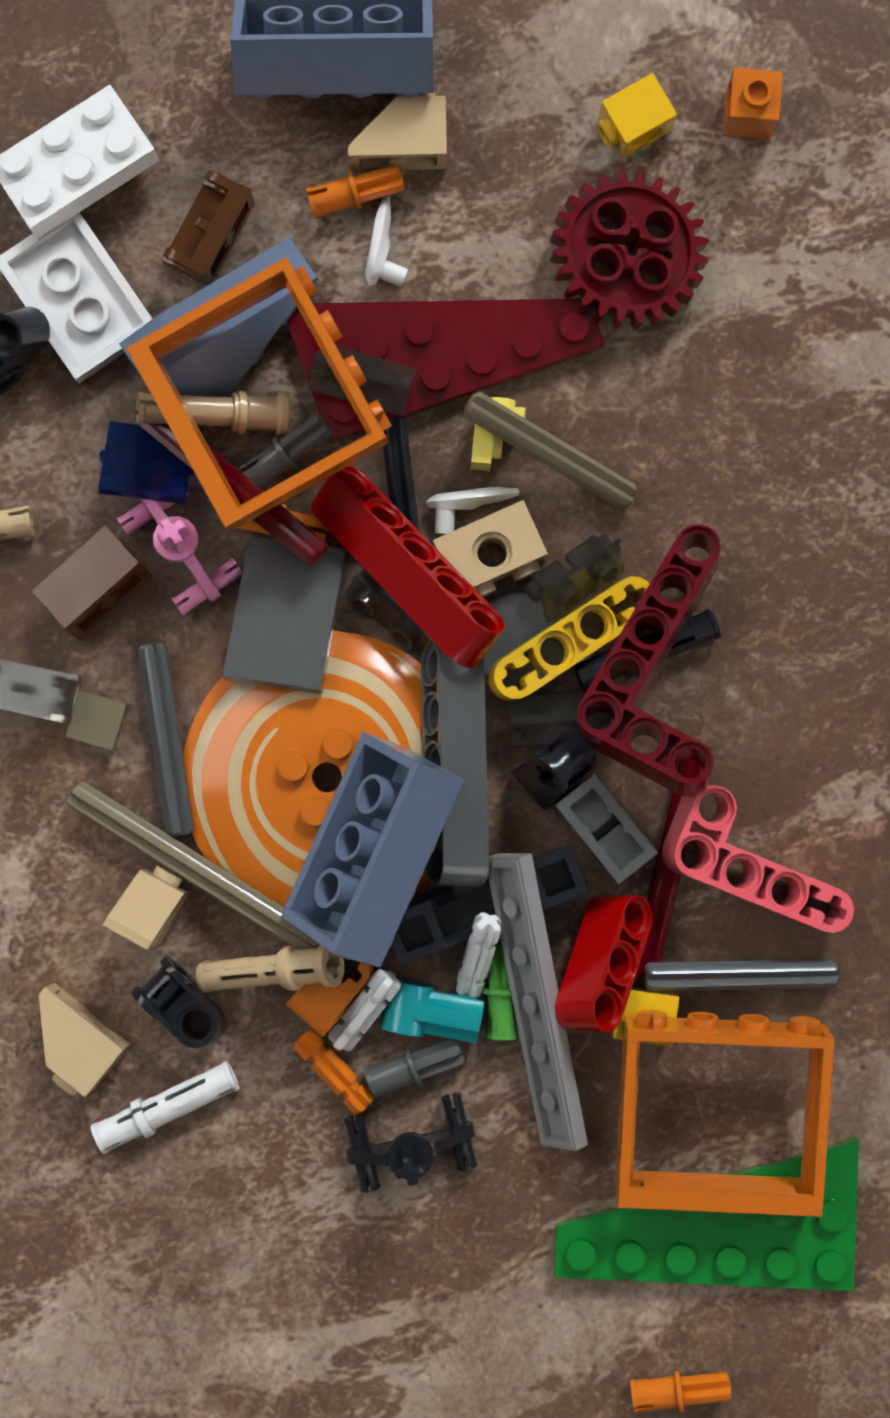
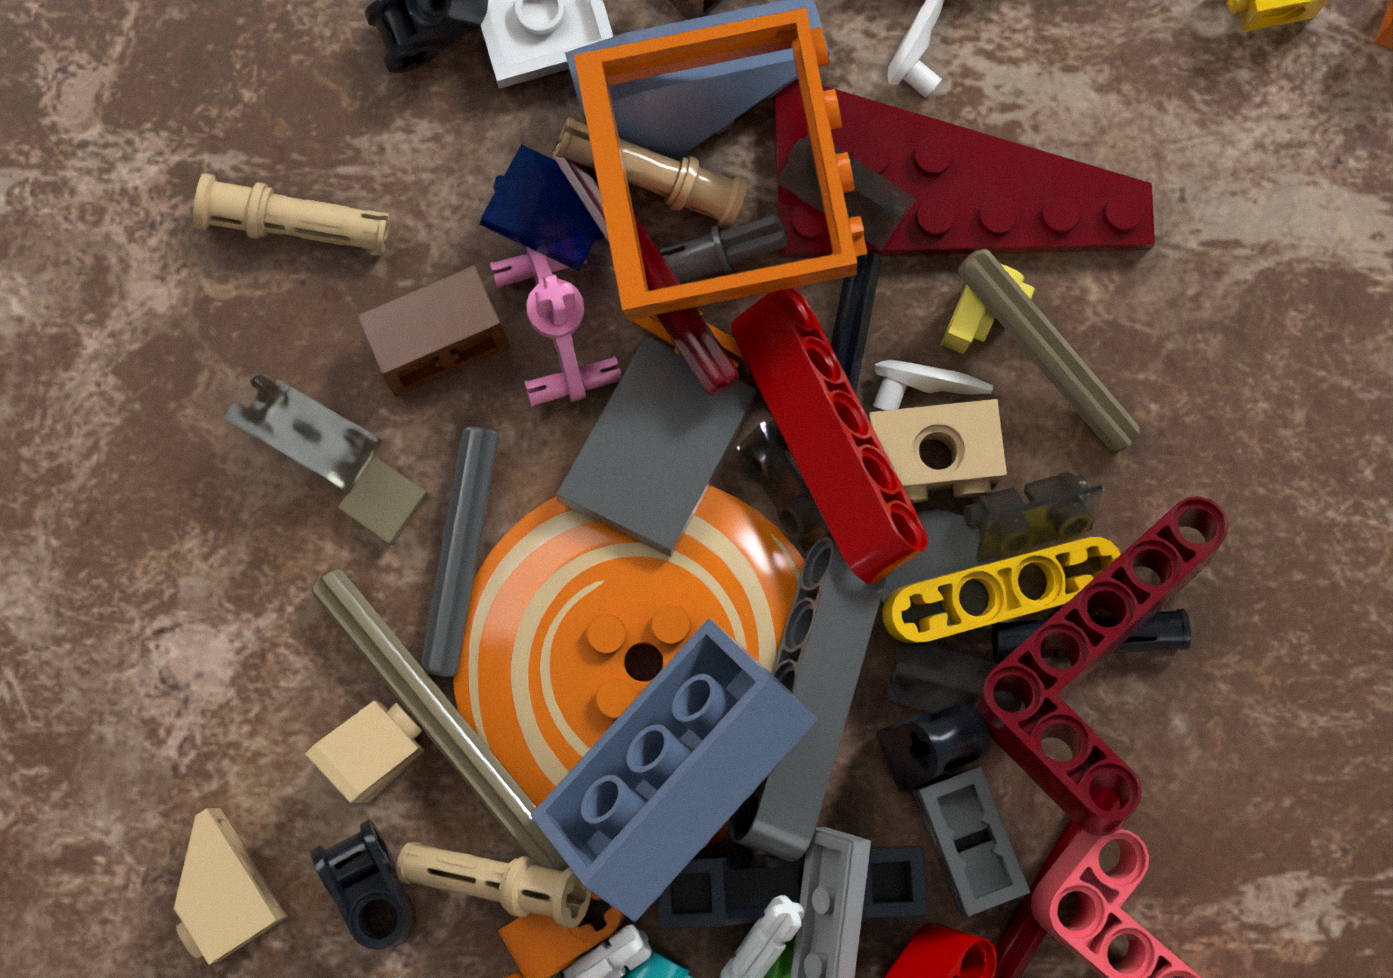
camera: 15 degrees right, 5 degrees down
(624, 292) = (1239, 94): dark red gear -> none

